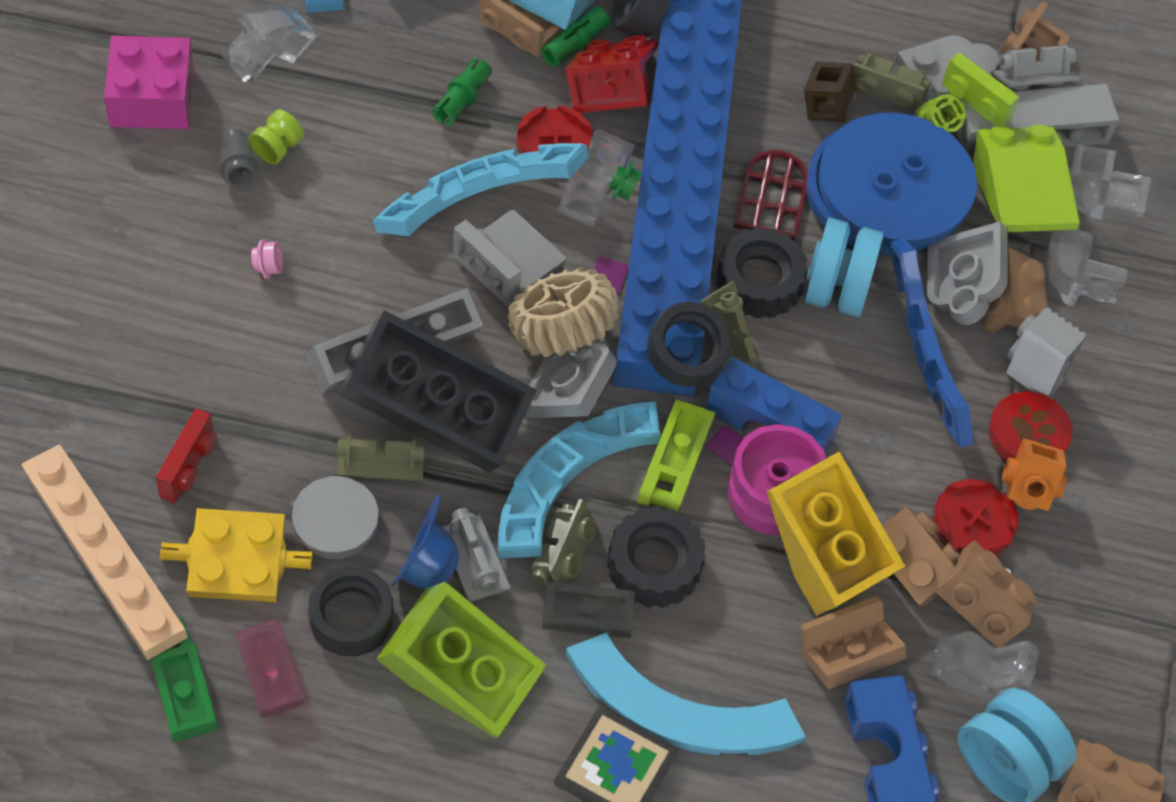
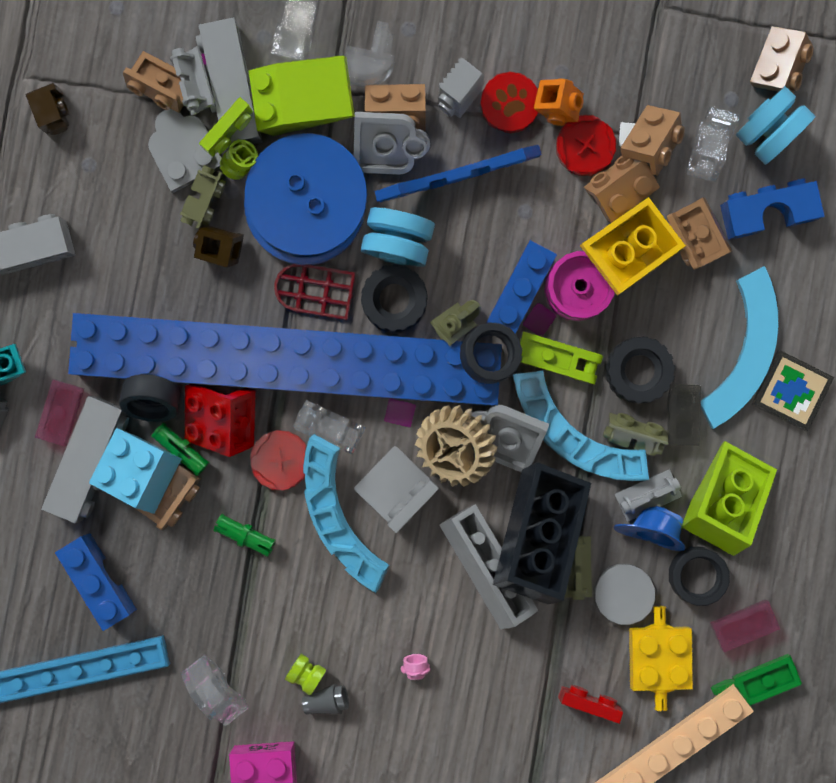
camera: 80 degrees left, 30 degrees up
(625, 181) = (336, 405): green plate -> none

